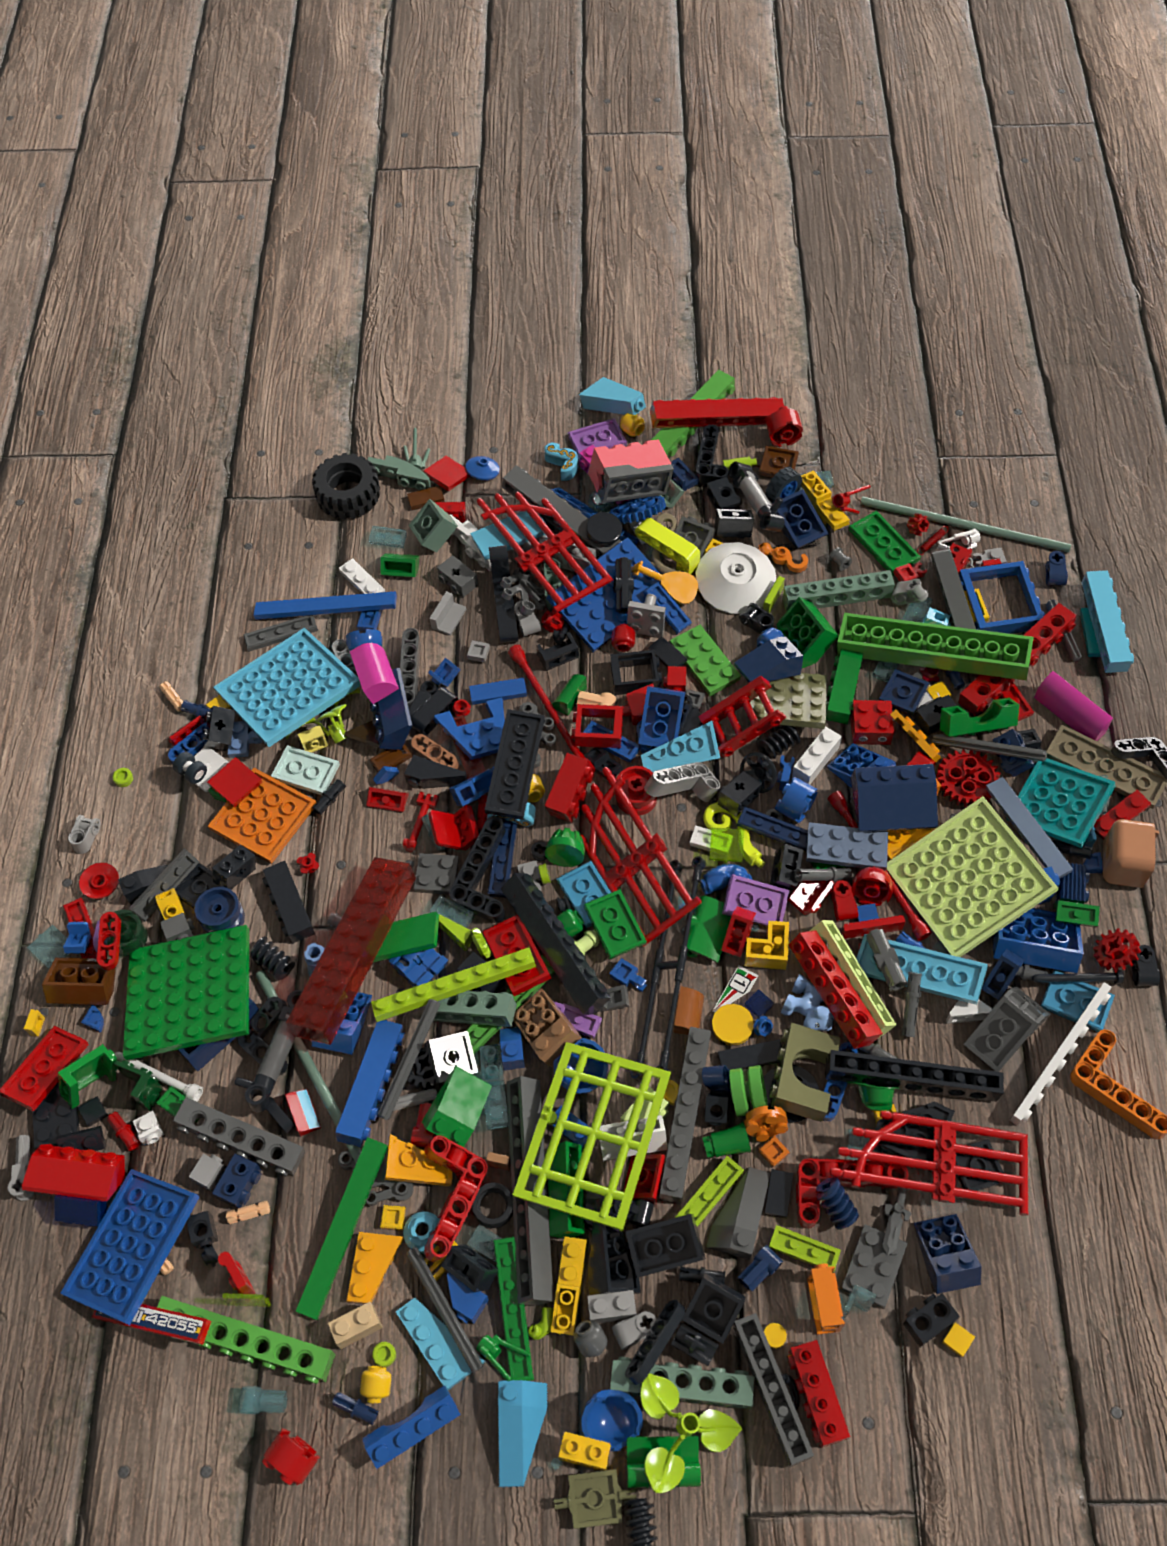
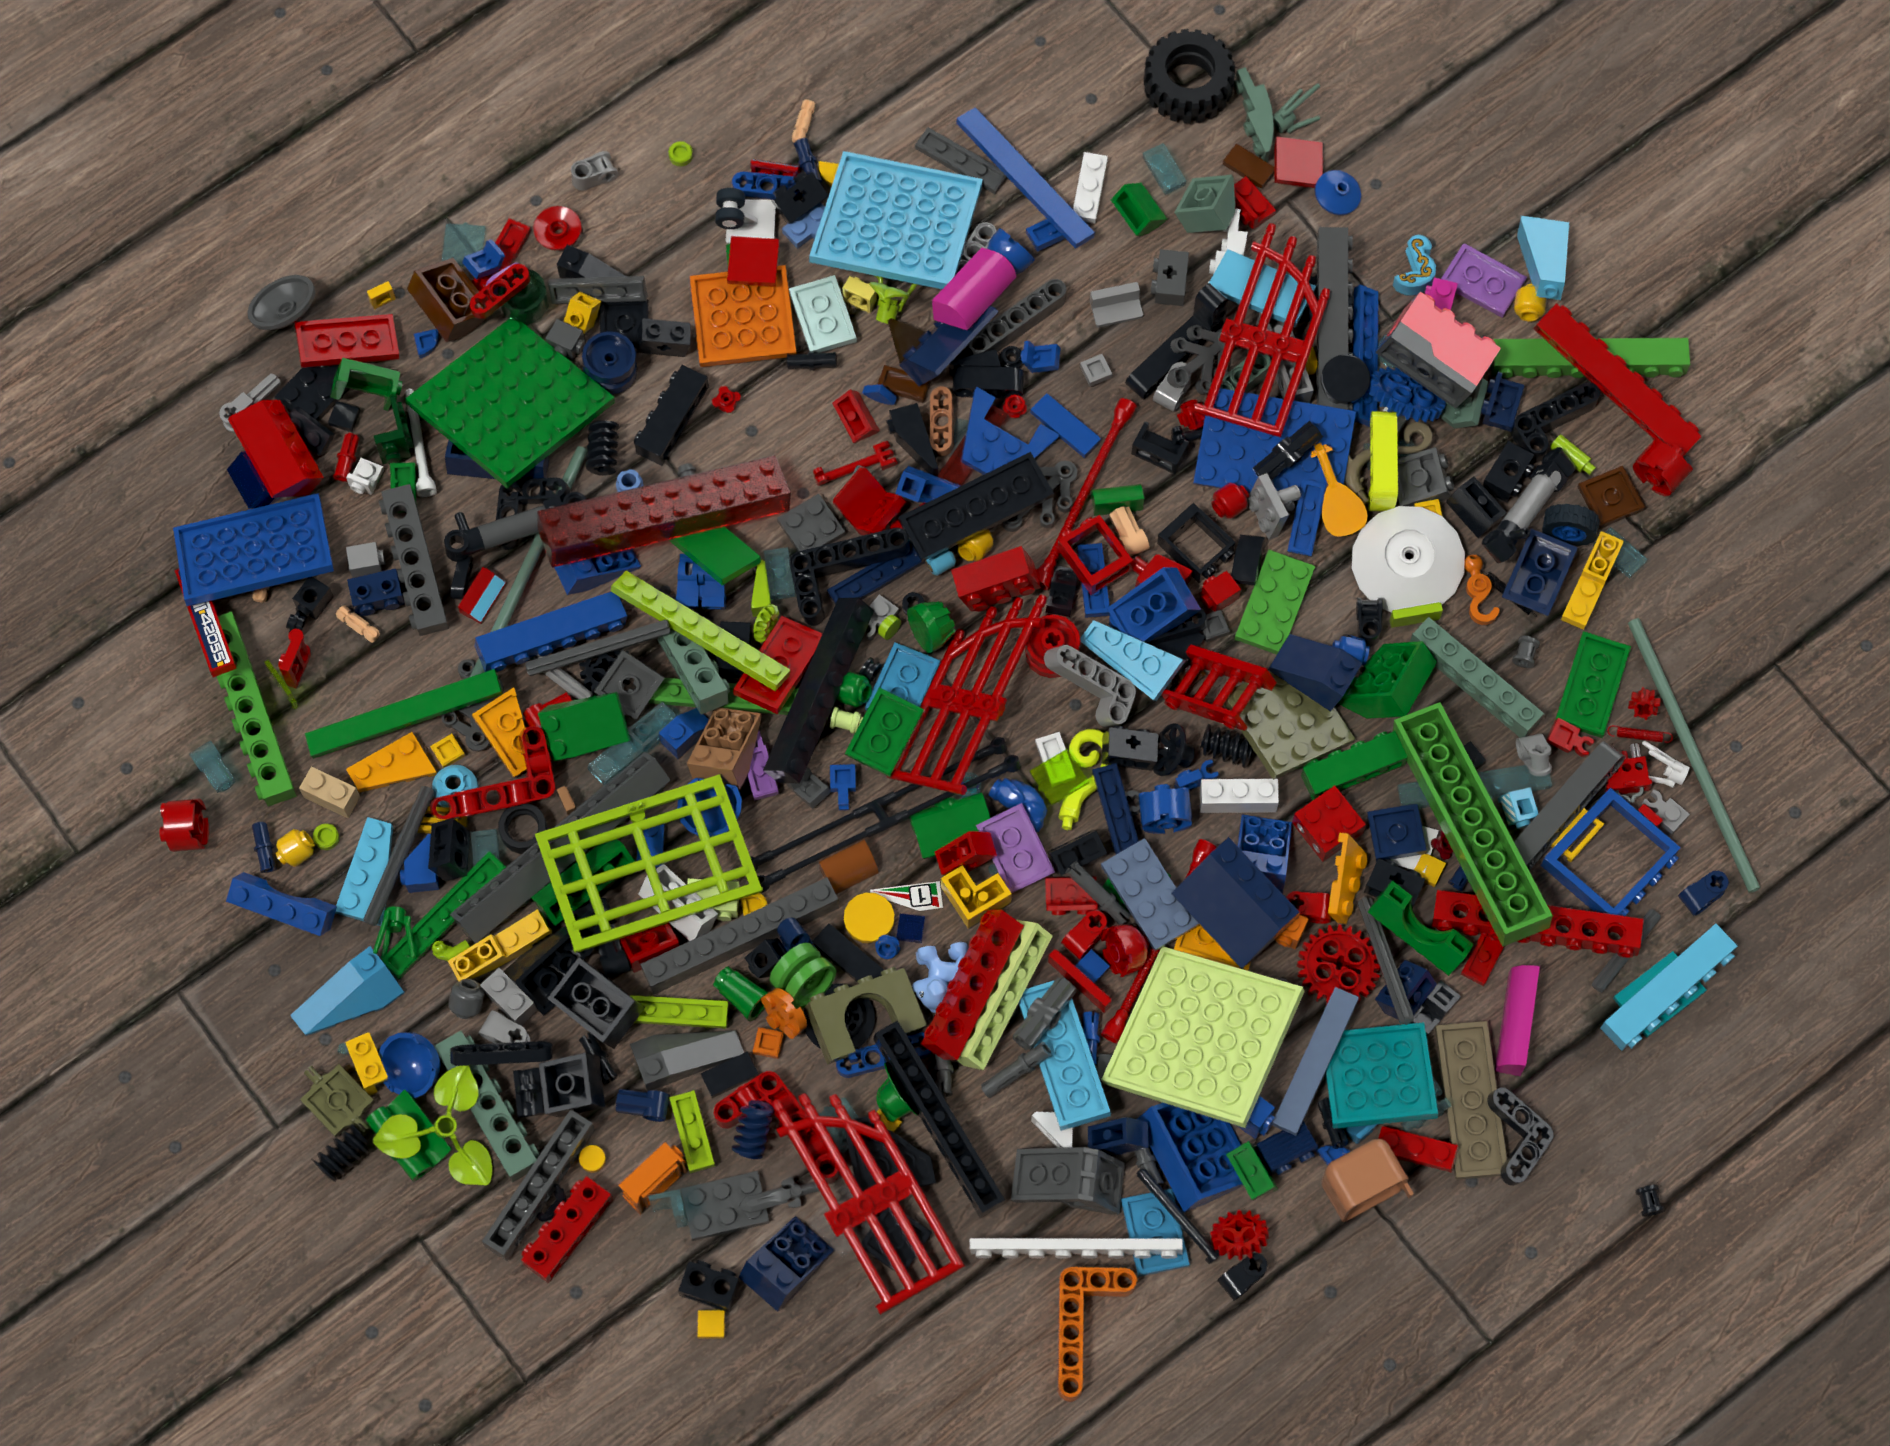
camera: 50 degrees right, 10 degrees up
(842, 500) = (1604, 599): red plant -> none

